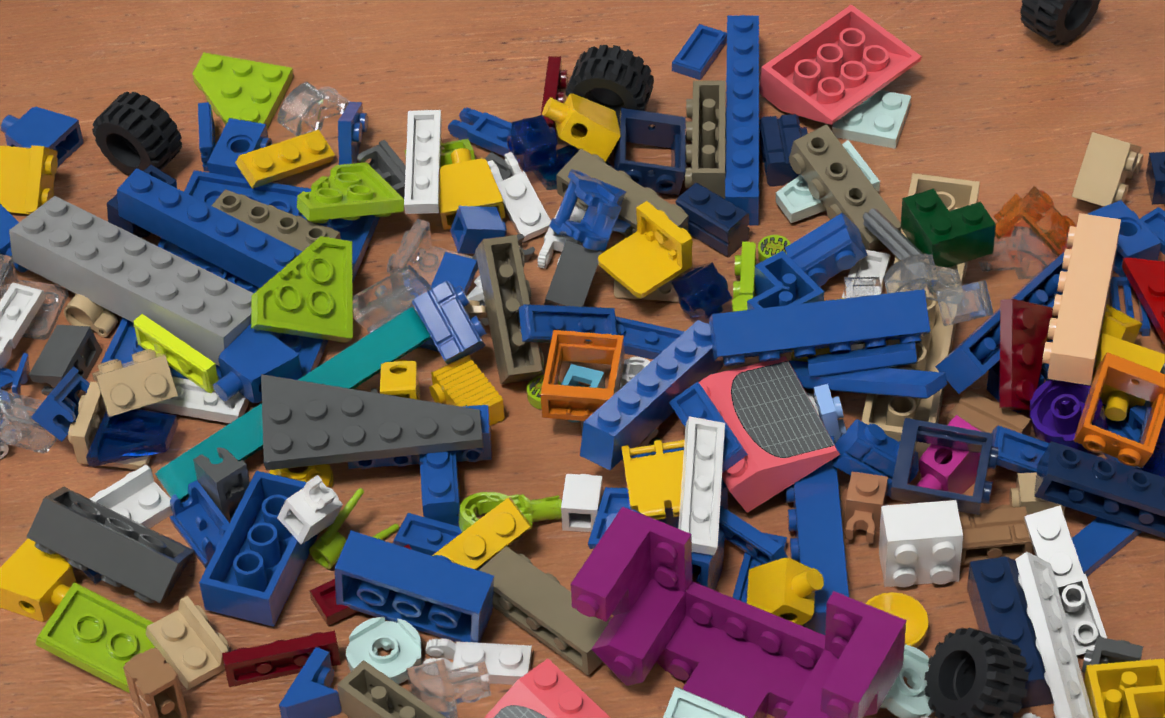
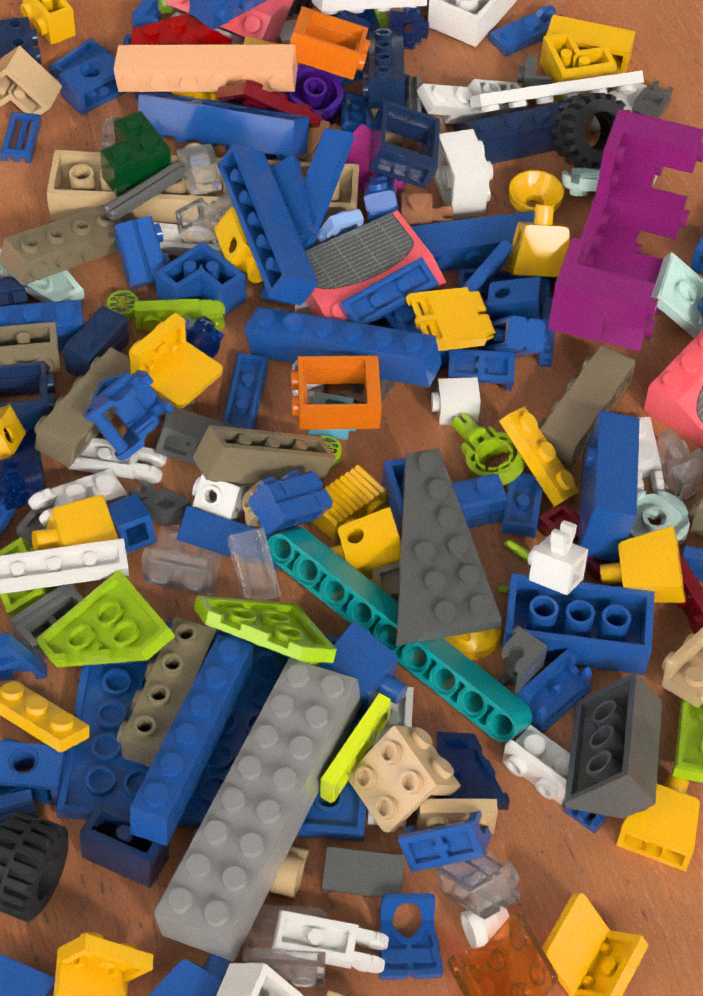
camera: 105 degrees left, 5 degrees up
(298, 607) = (649, 564): none -> yellow torso
(540, 320) = (271, 415): blue tile -> none
(702, 483) = (469, 279): white plate -> none
(964, 303) = (220, 134): clear brick -> none
(1040, 214) = (84, 128): clear orange bracket -> none
(1055, 183) = (18, 152): none -> blue tile
(1076, 519) = (412, 98): none -> dark grey axle

